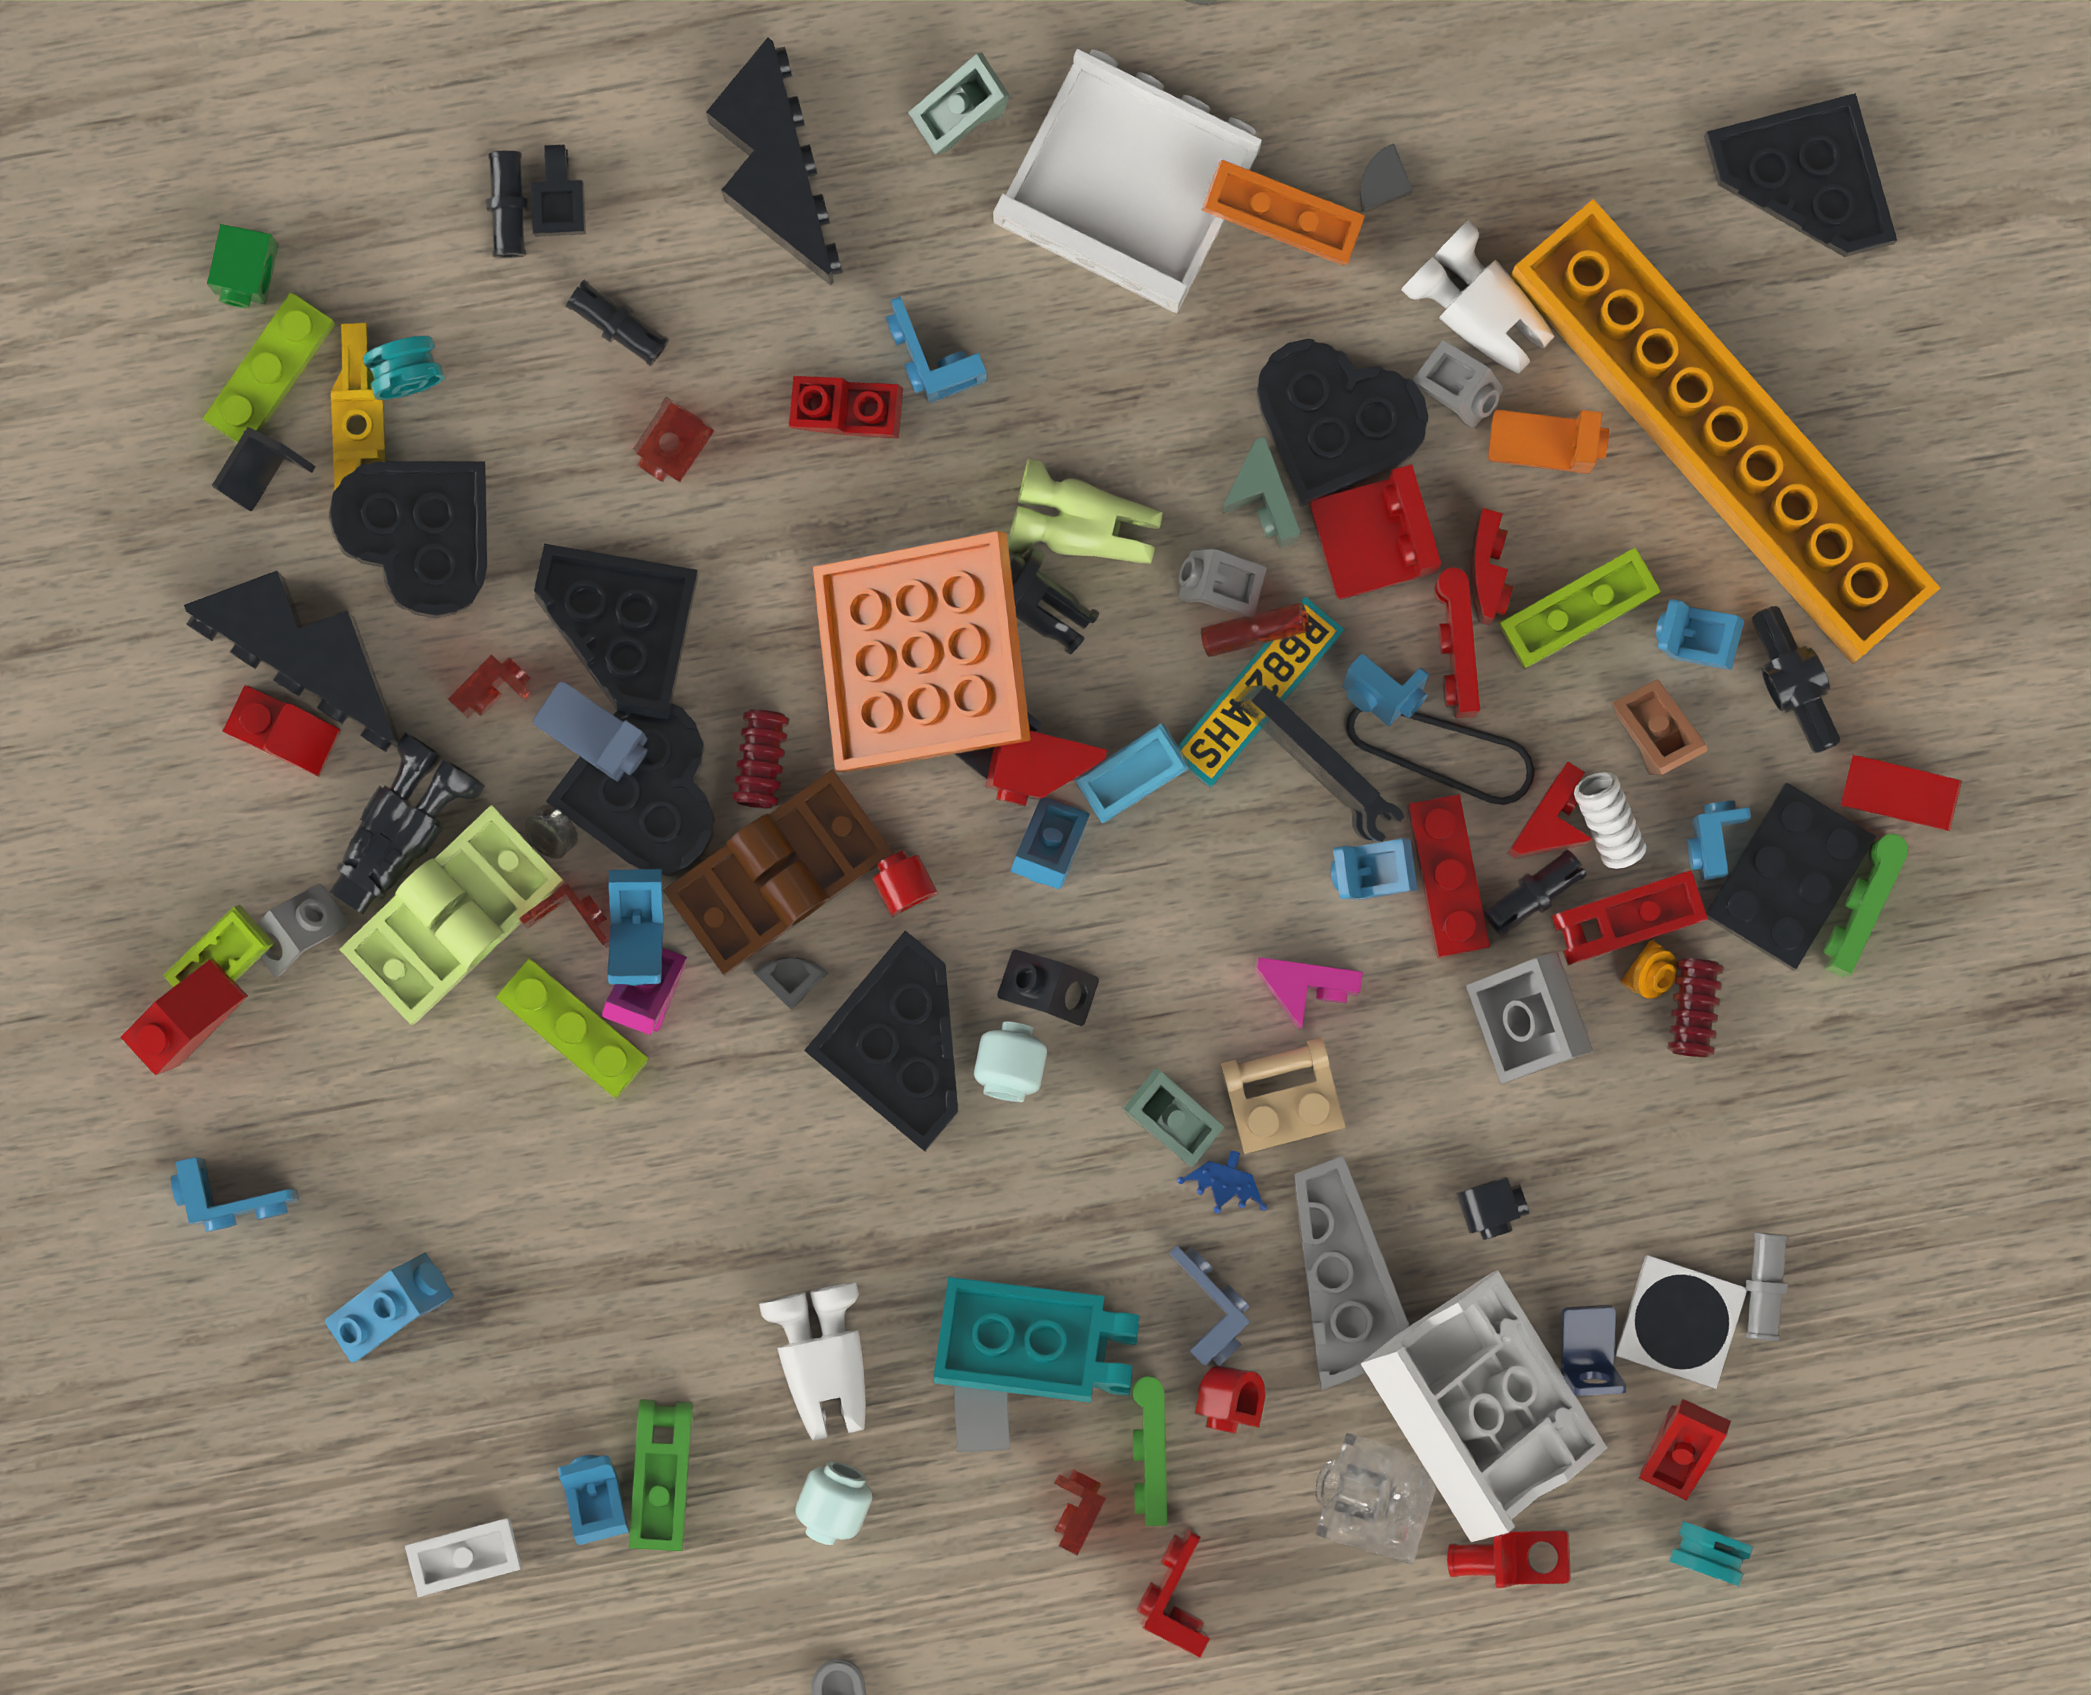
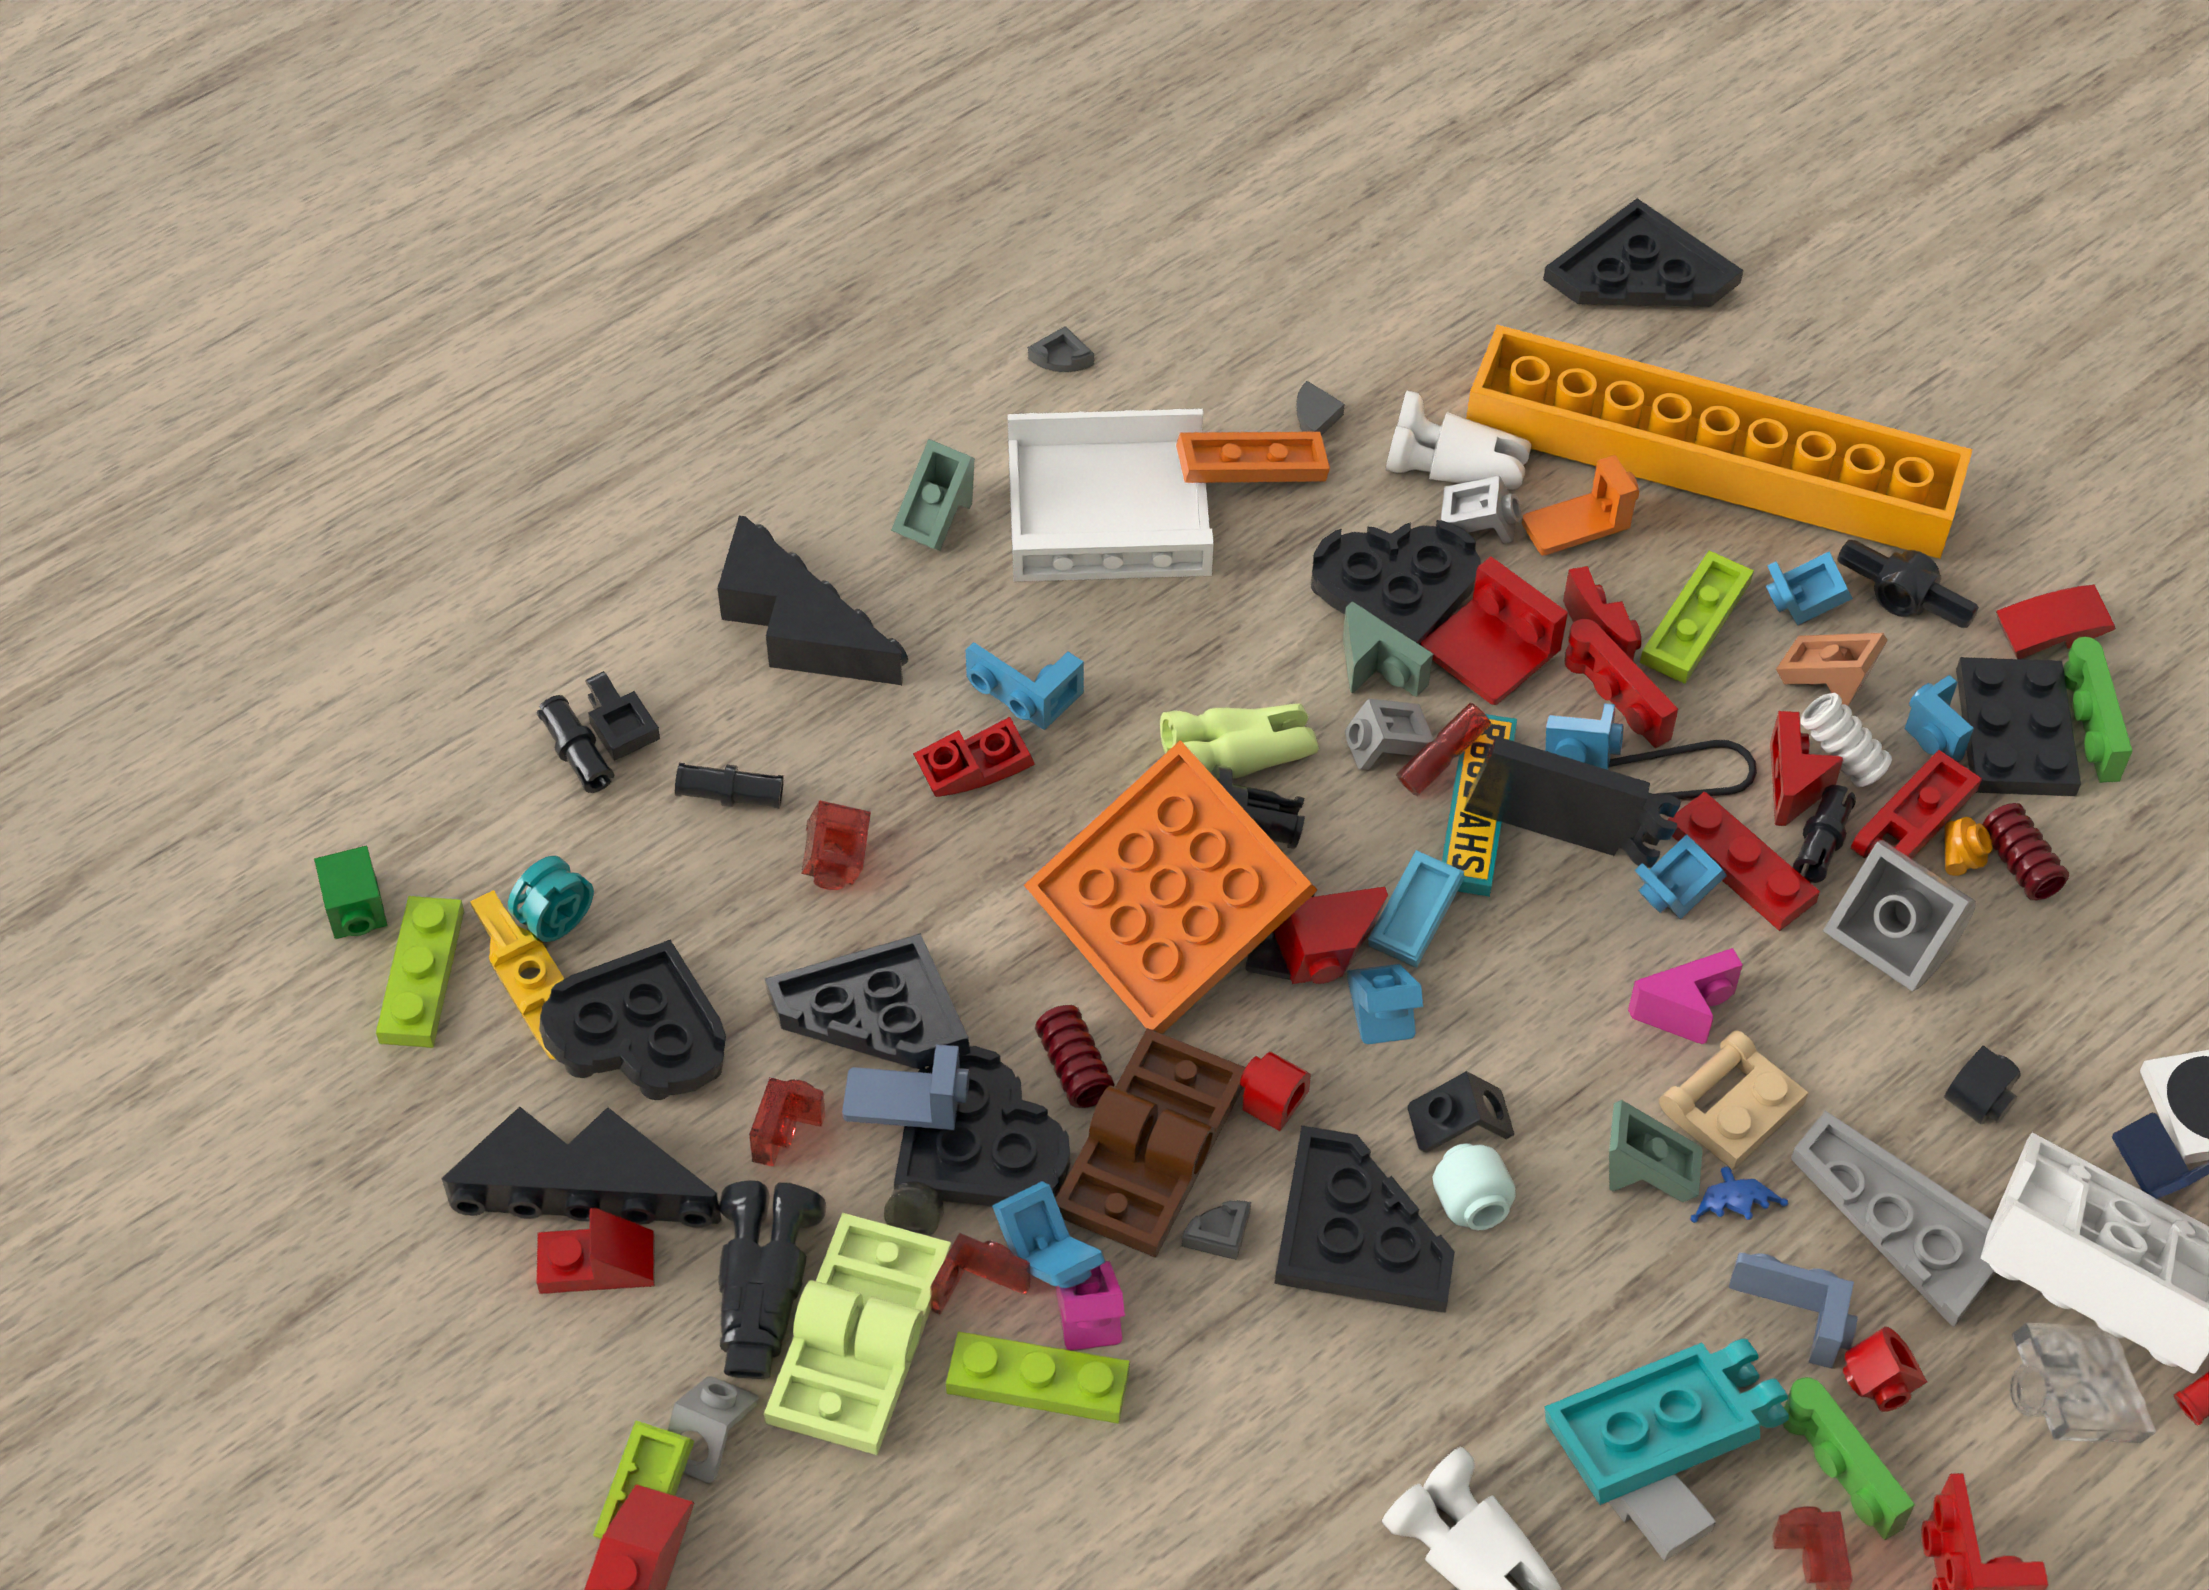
camera: 30 degrees left, 30 degrees down
(253, 467) = (449, 1038): black bracket -> none

